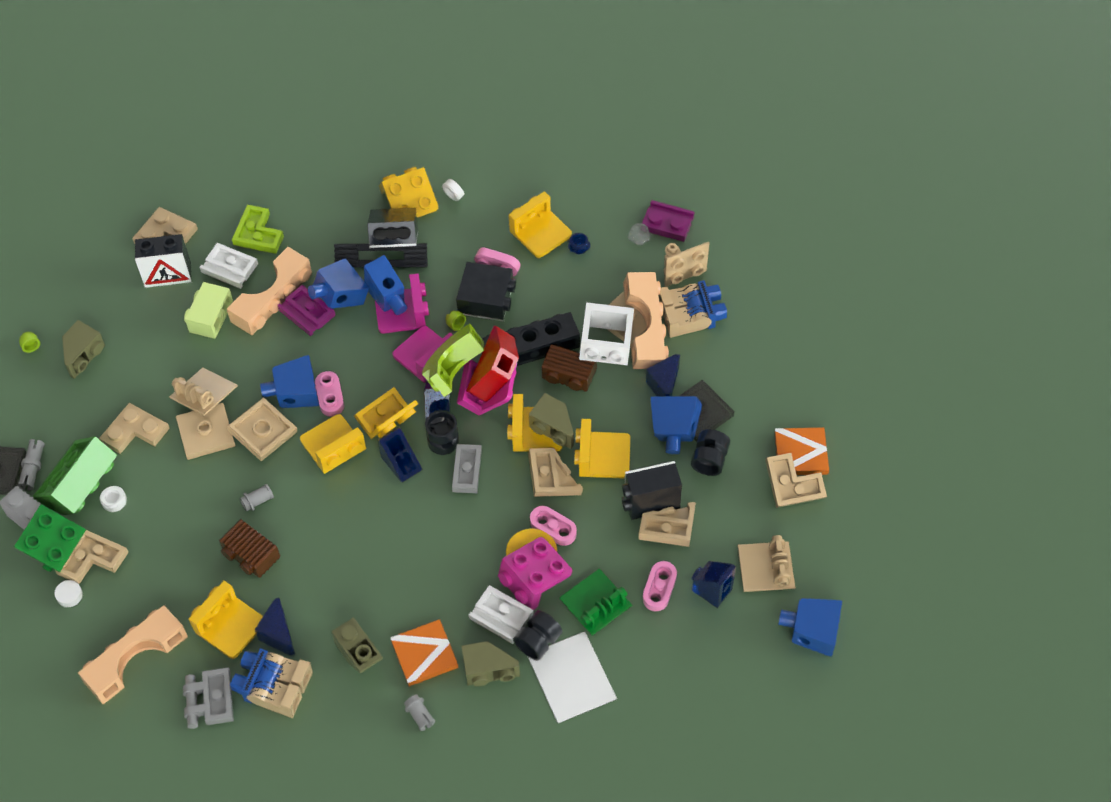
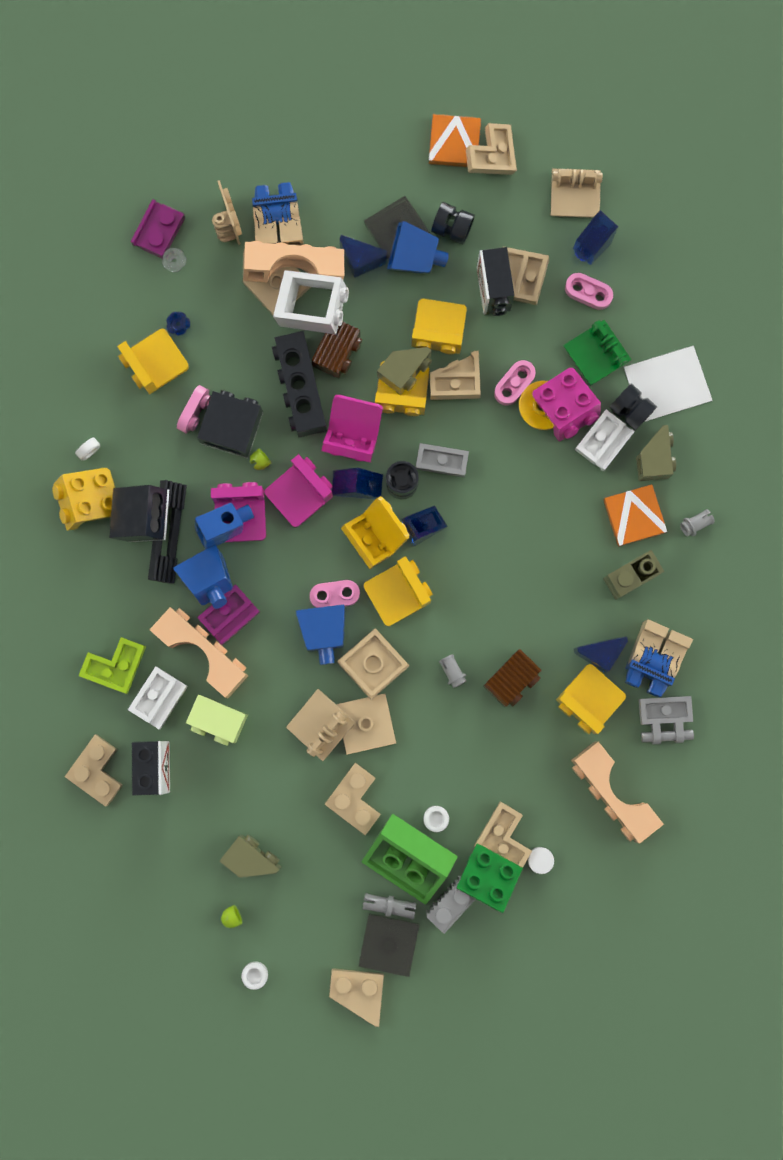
camera: 85 degrees left, 25 degrees up
(451, 357) = (326, 463): lime arch -> none
(494, 365) = (338, 415): red slope -> none
(814, 624) = (642, 157): blue torso -> none

